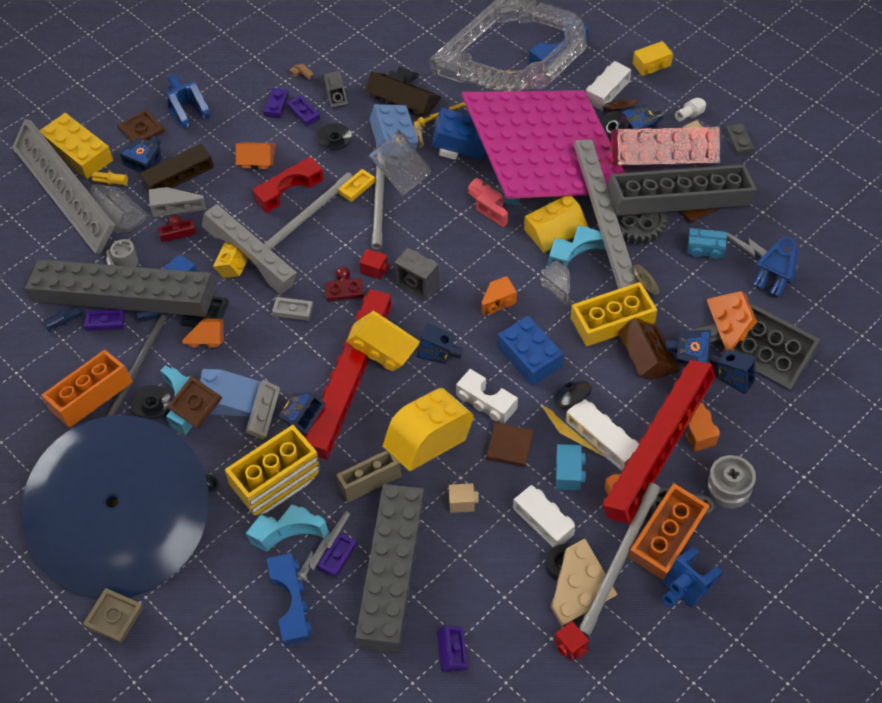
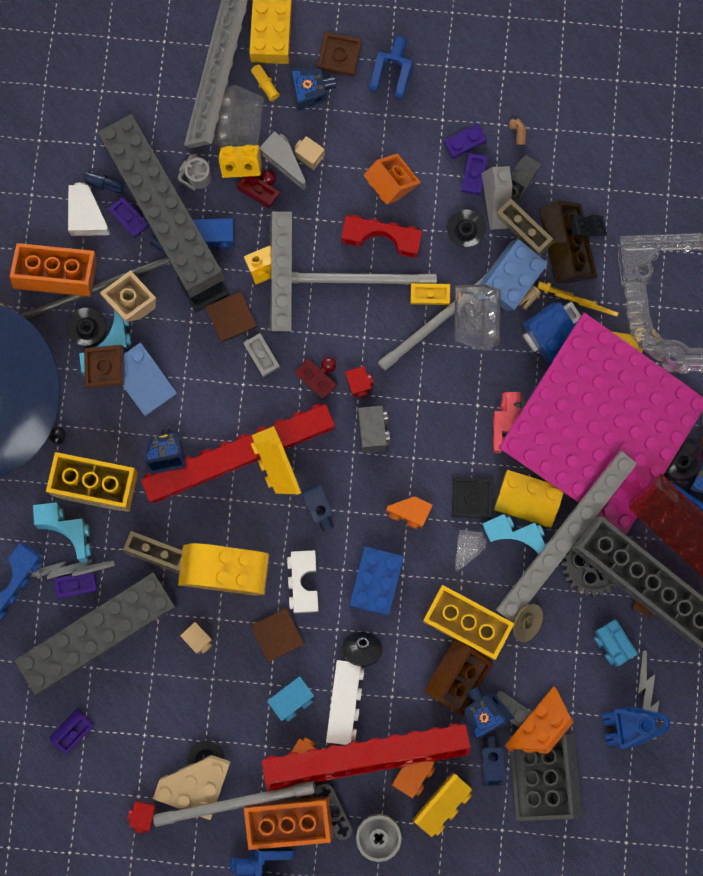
camera: 50 degrees right, 25 degrees up
(70, 342) = (84, 213): none -> white slope
(145, 222) = (240, 161): none -> yellow brick
(163, 351) = (129, 297): none -> tan slope
(177, 169) = (323, 131): dark brown brick -> none
(186, 182) = (309, 152): none -> tan brick
(208, 331) = (179, 310): orange slope -> none
(245, 309) = (231, 317): none -> reddish brown tile
(262, 410) = (149, 418): light grey plate -> none
(331, 103) = (497, 191): none -> light grey slope
(363, 98) = (524, 227): none -> dark tan brick
(523, 258) = (472, 497): none -> black tile
(544, 516) = (231, 714): white brick -> none
(567, 431) = (319, 672): yellow sticker -> none
(739, 422) = (443, 805): none -> yellow slope

